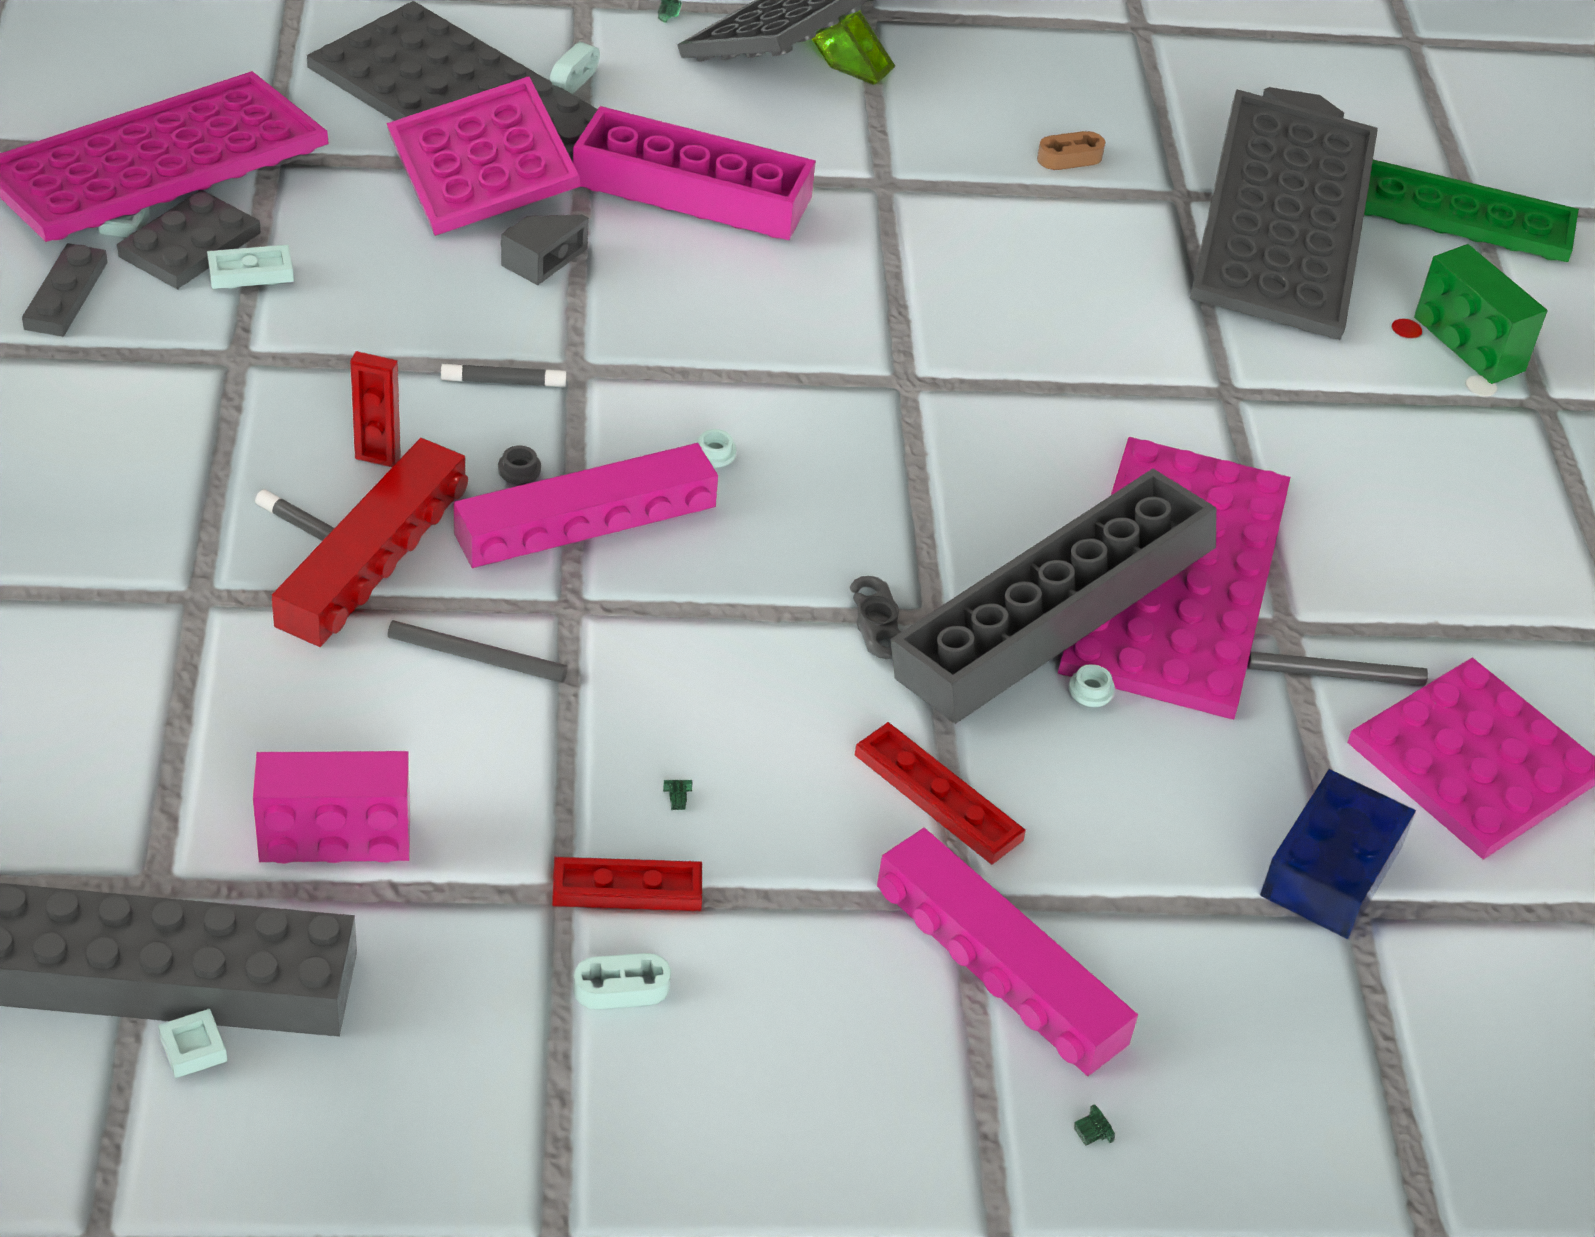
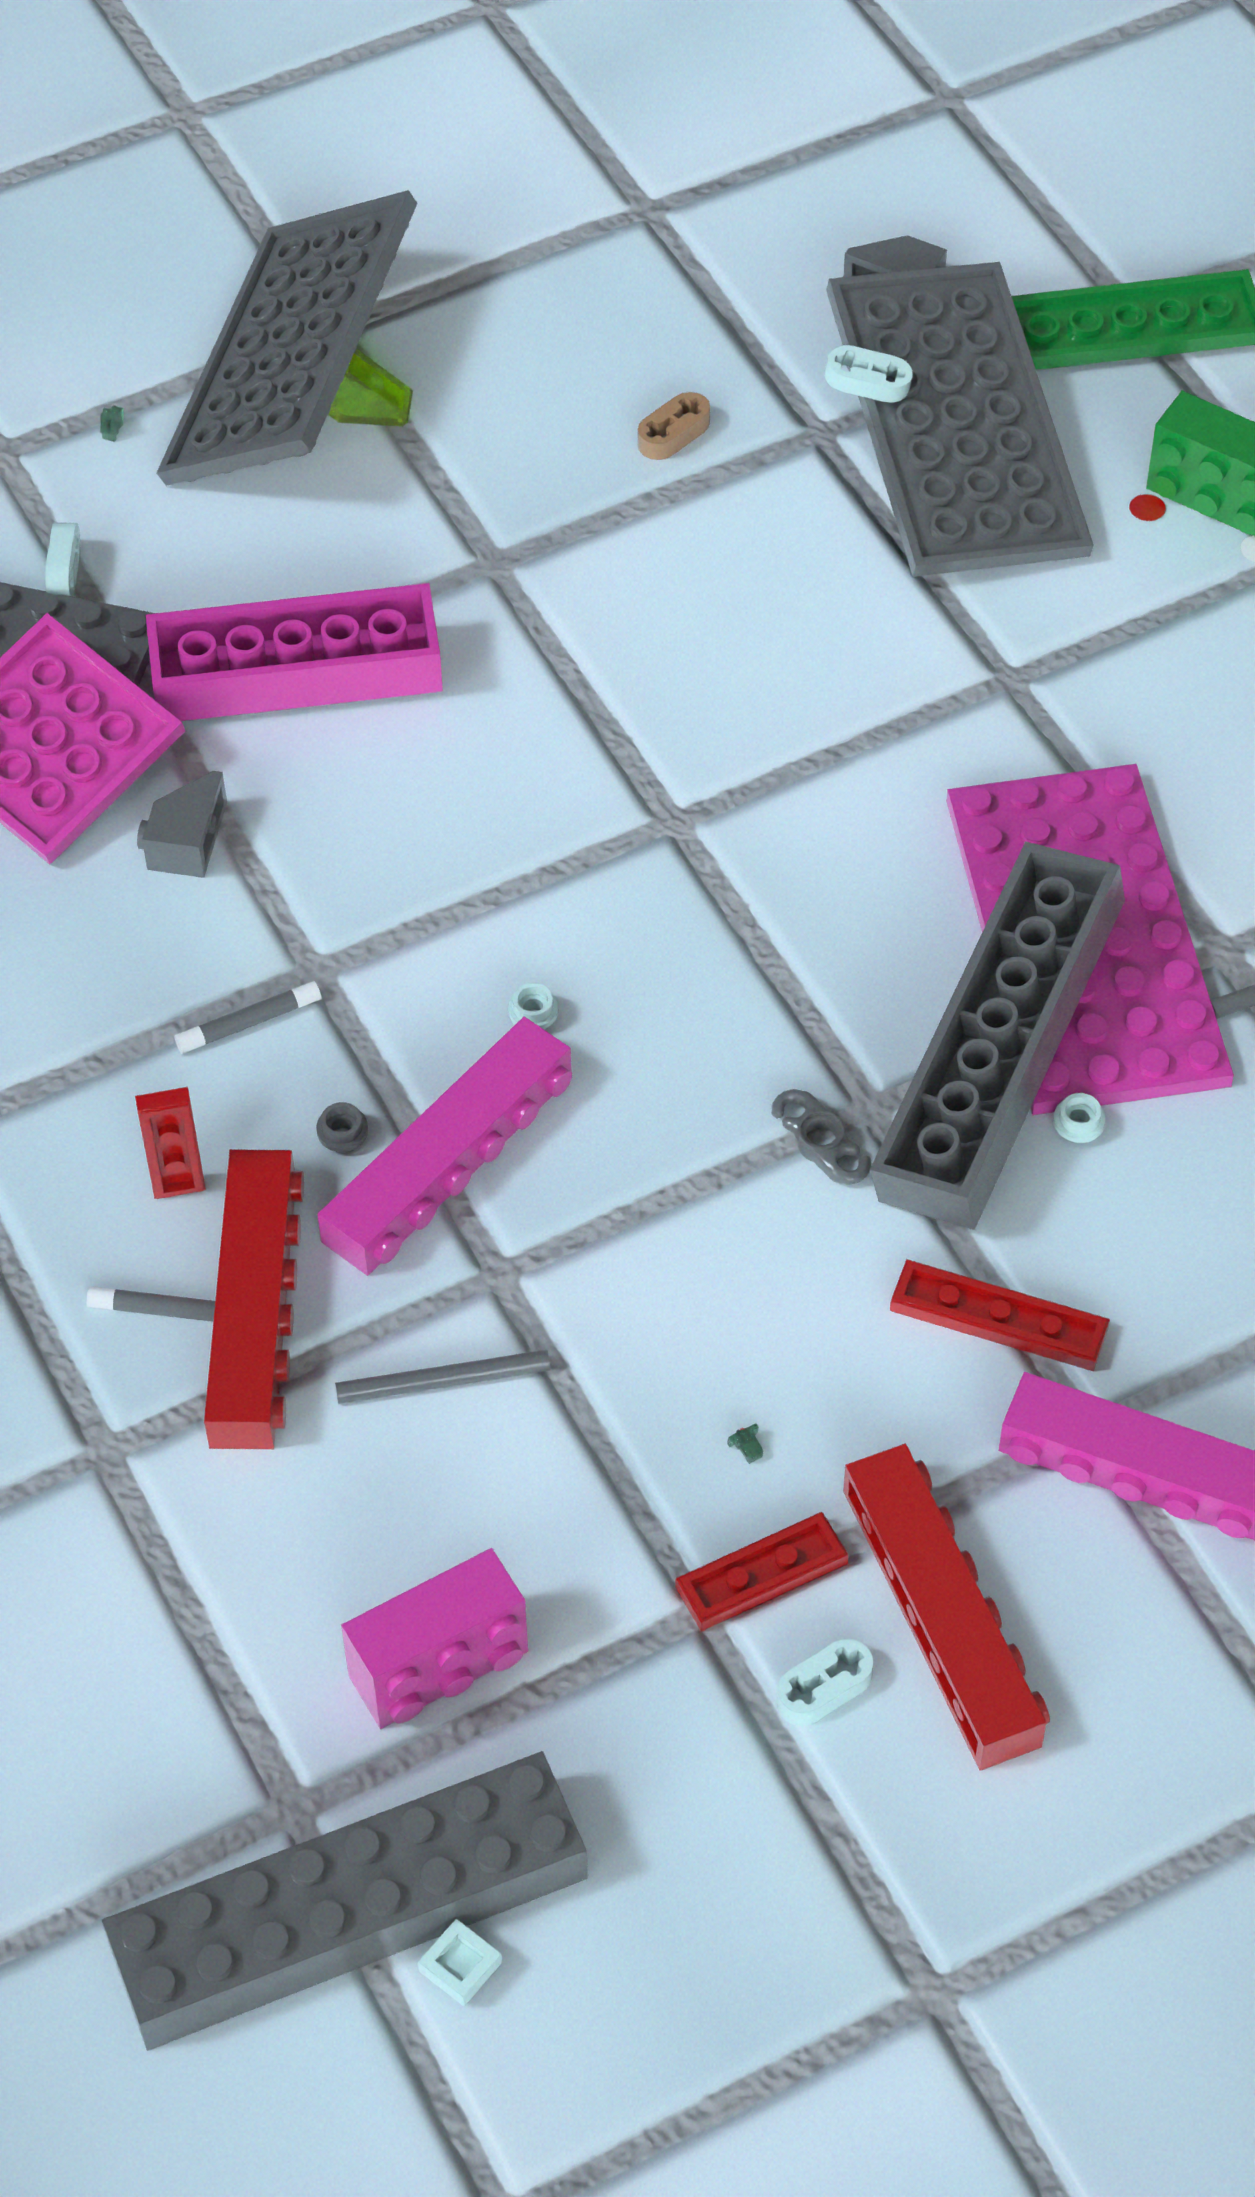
camera: 20 degrees left, 10 degrees up
(752, 971) = (945, 1606): none -> red brick
(1229, 153) = (868, 373): none -> light aqua beam

